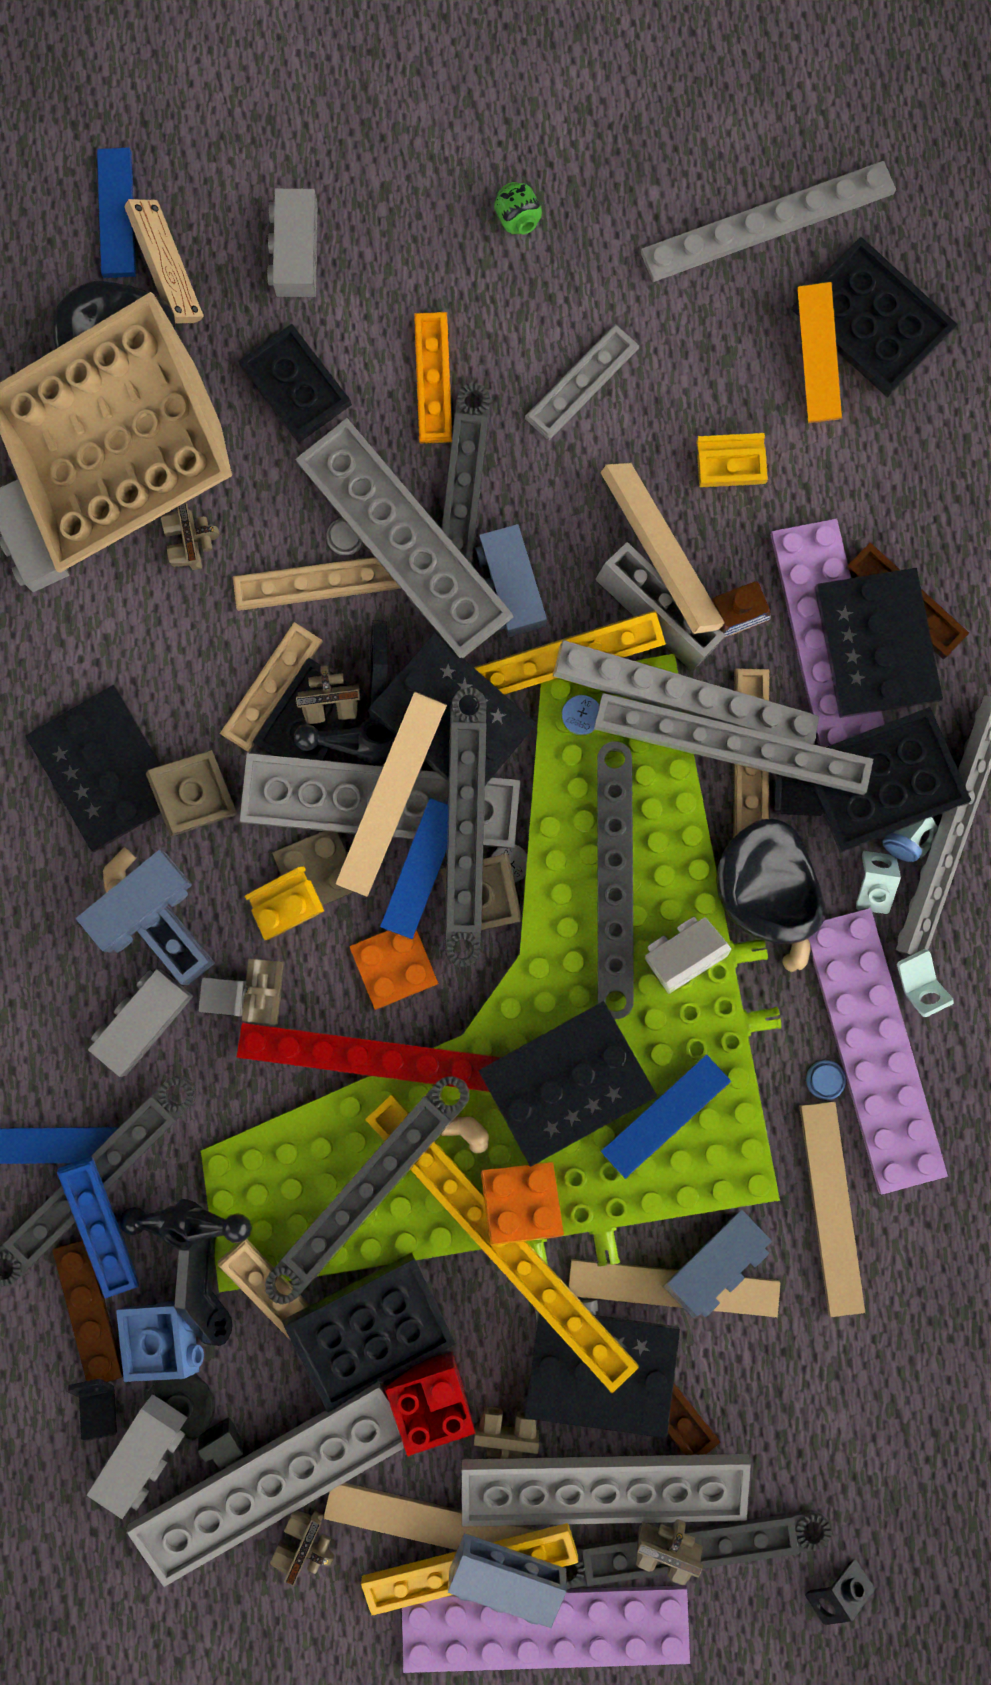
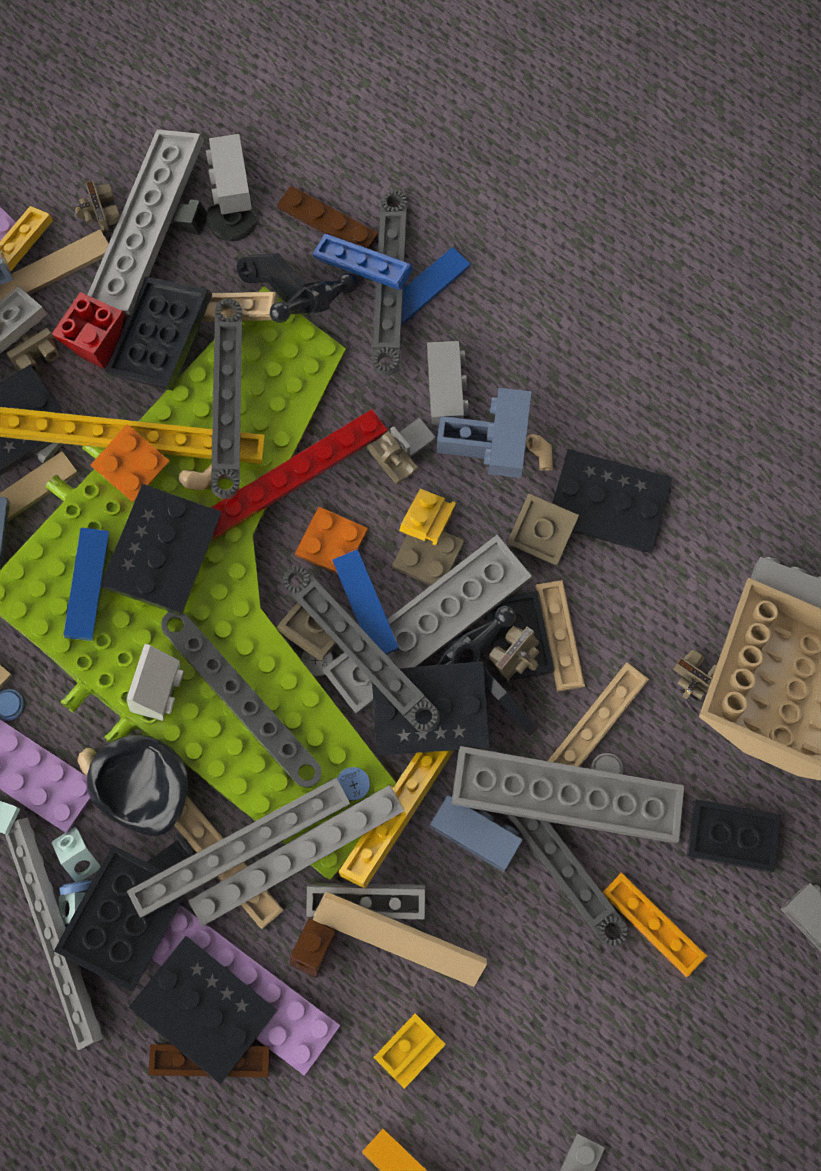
camera: 140 degrees right, 10 degrees down
(96, 1408) = (274, 178): black bracket -> none
(157, 1343) = (273, 233): medium blue plate -> none
(391, 793) = (423, 628): tan tile -> none
(517, 208) = (711, 1095): bright green head -> none
(581, 382) = (556, 1014): light grey tile -> none

